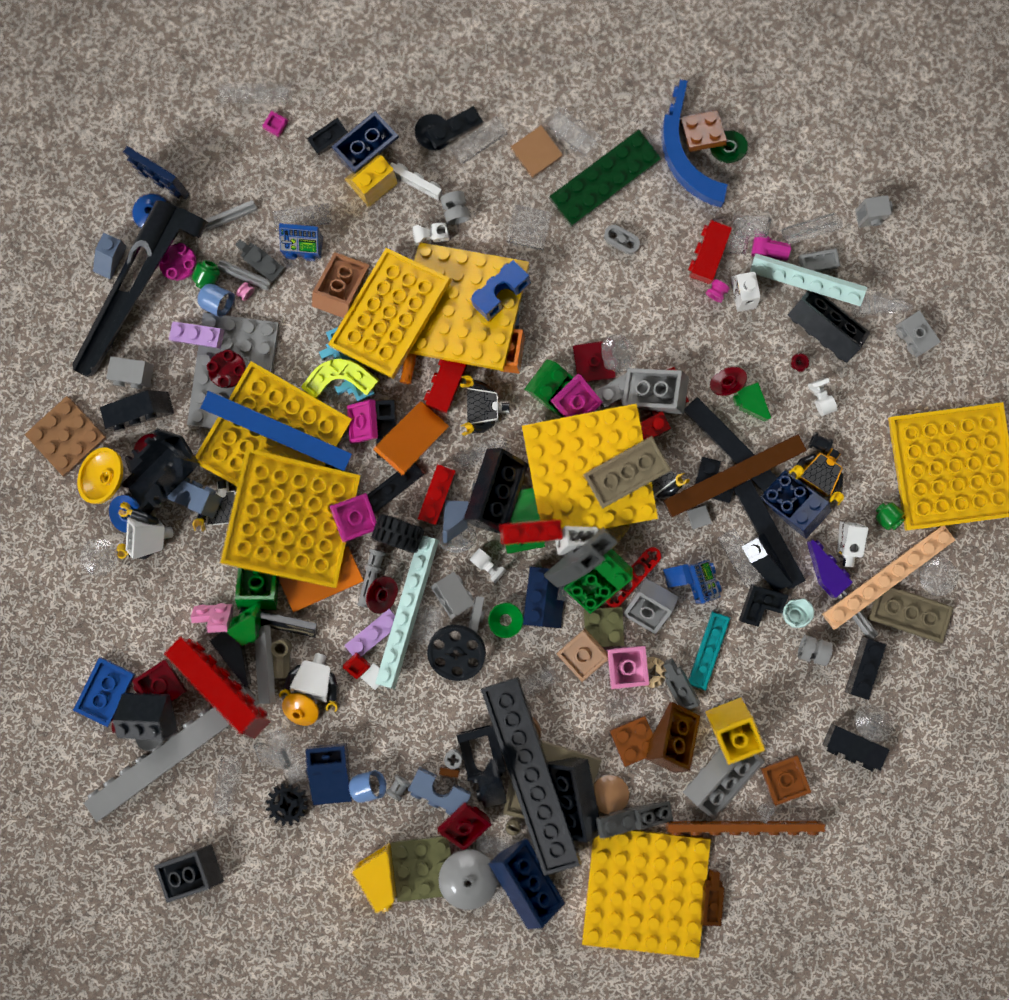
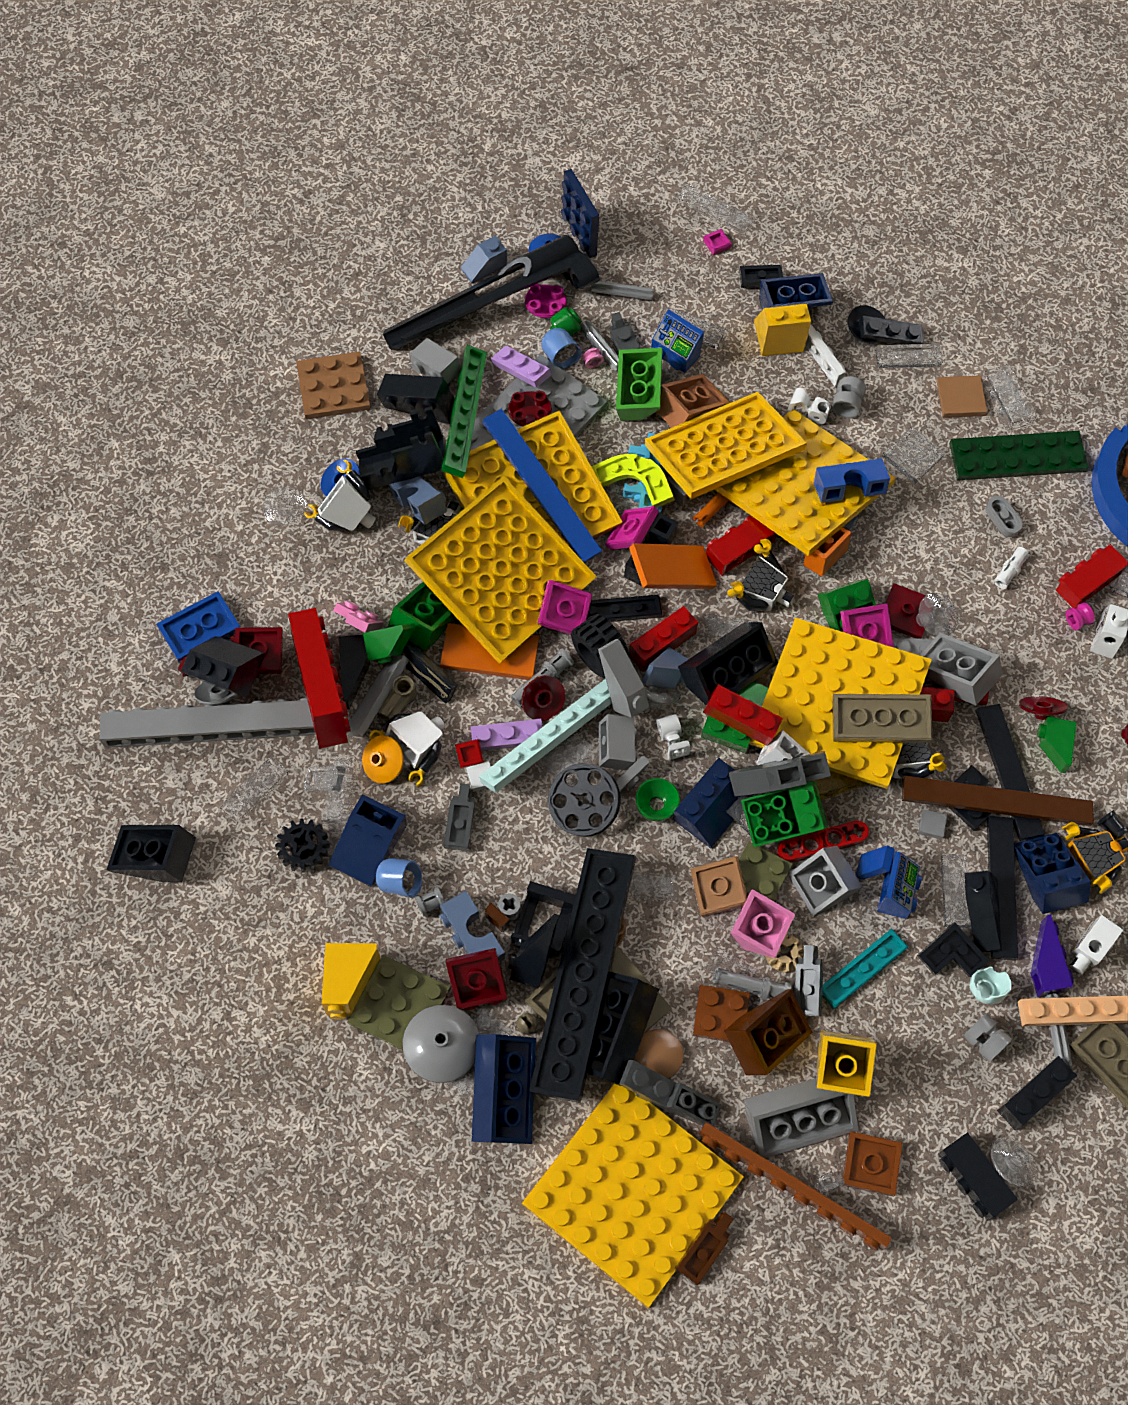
camera: 30 degrees right, 20 degrees down
(100, 475) = (342, 431): yellow dish -> none
(180, 404) = (464, 411): none -> green plate
(293, 297) = (639, 383): none -> bright green slope
(380, 717) = (459, 820): none -> dark grey hinge
(430, 553) = (623, 682): none -> light grey slope
(649, 279) = (1011, 567): none -> white pin
(652, 709) = (762, 987): none -> light grey pin

